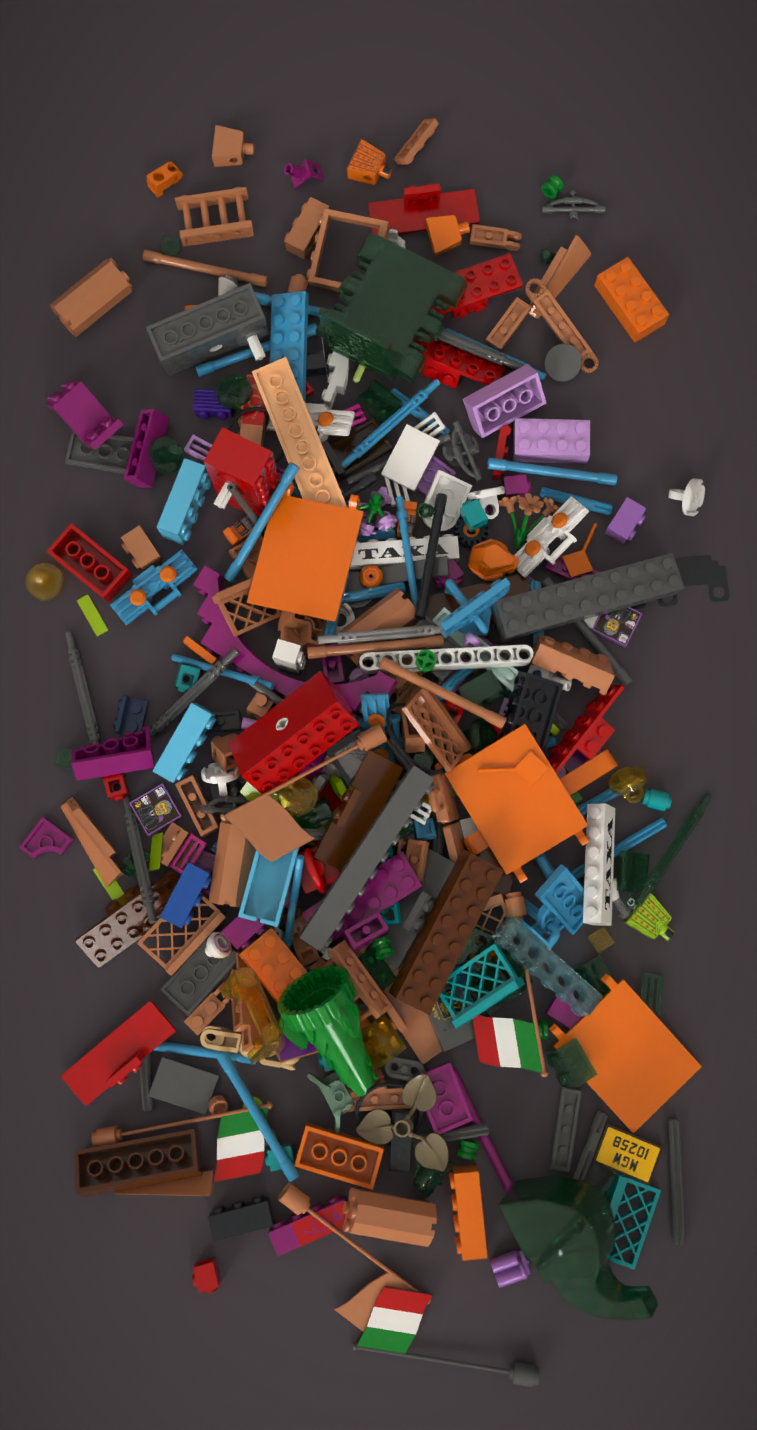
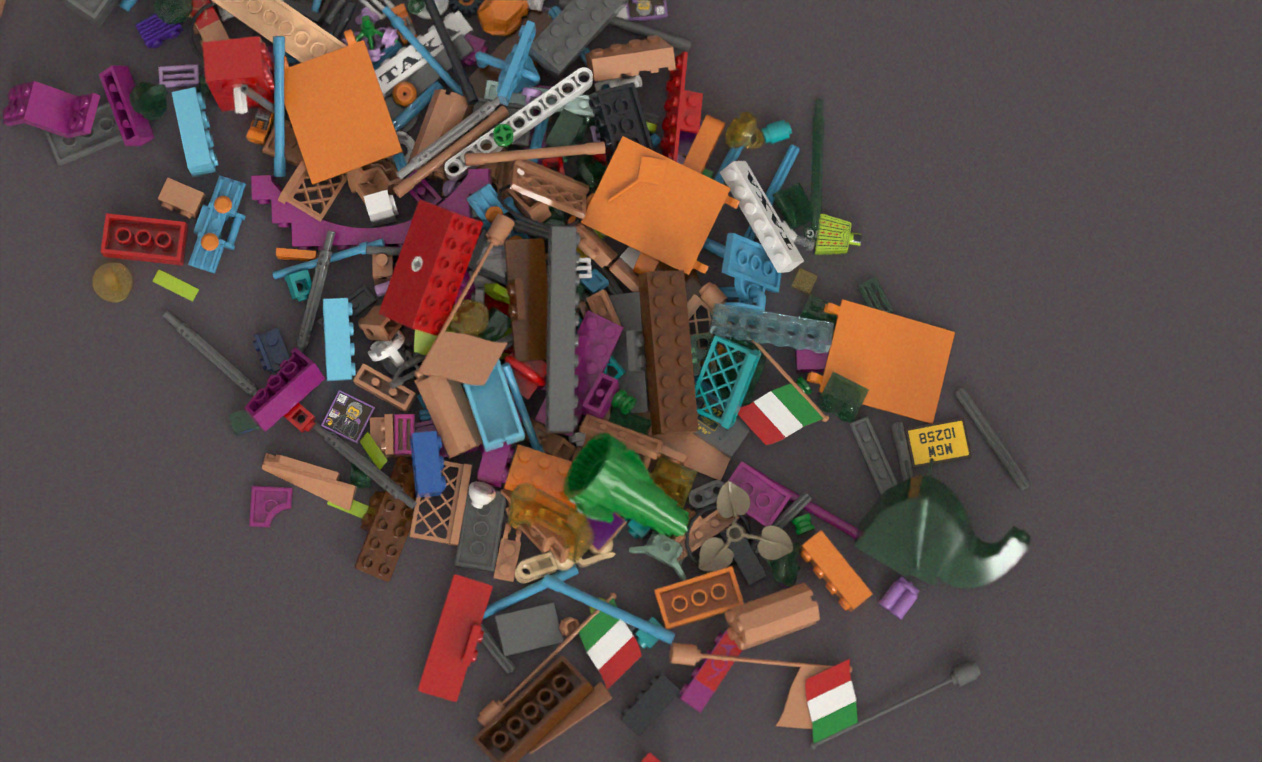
camera: 40 degrees left, 0 degrees up
(614, 1196) = (946, 476): teal fence -> none

